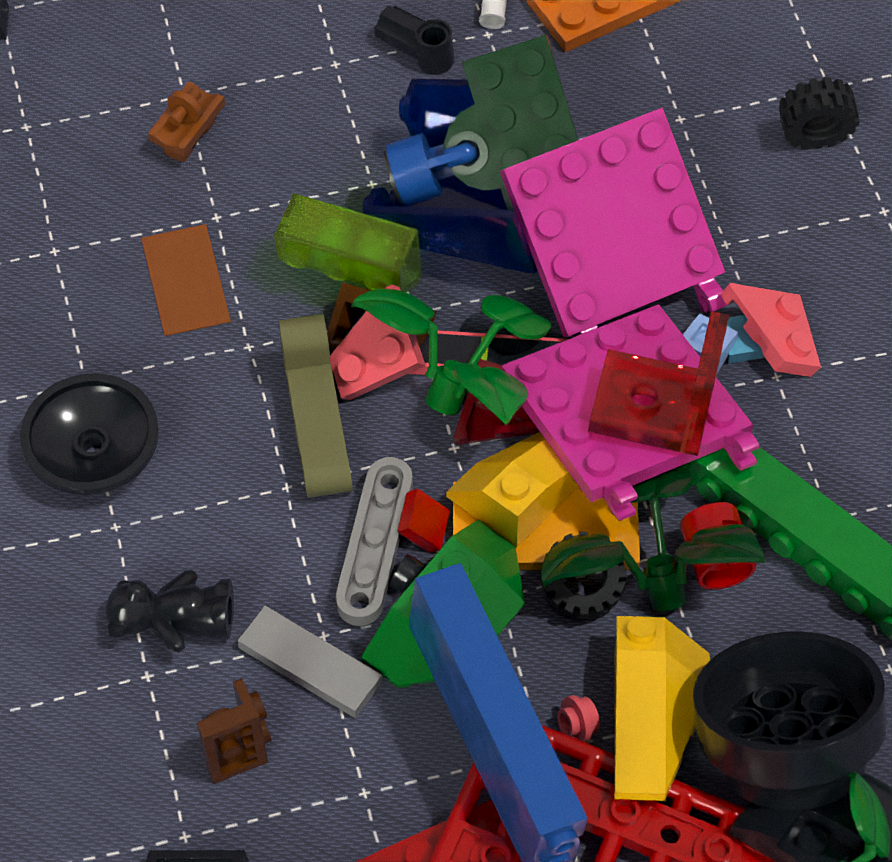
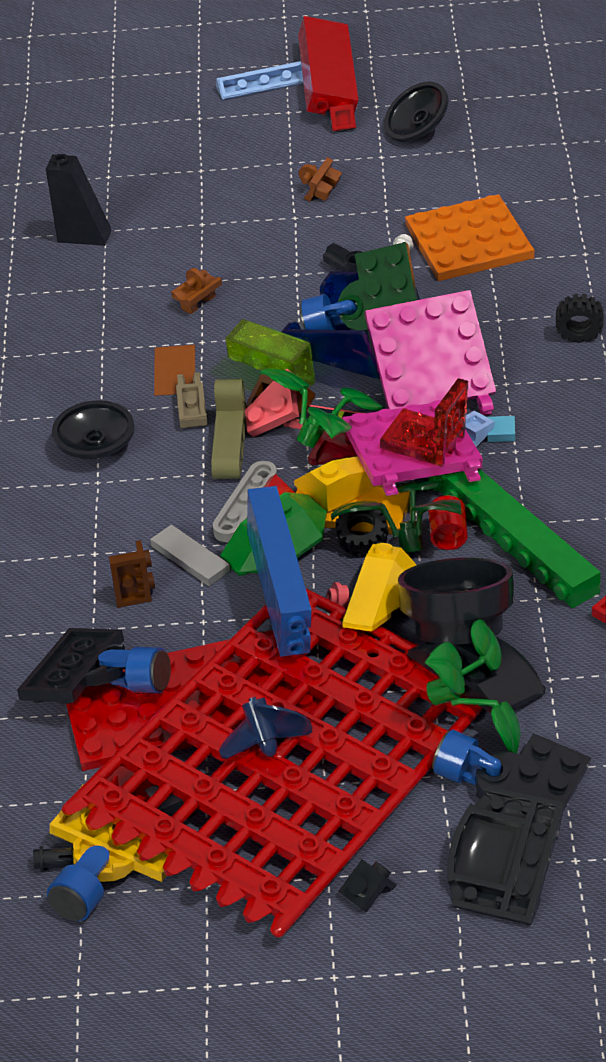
camera: 15 degrees right, 15 degrees down
(173, 610) = (123, 520): black piece -> none
(233, 347) = (191, 402): none -> dark tan hinge
(777, 326) = (520, 421): coral wing -> none

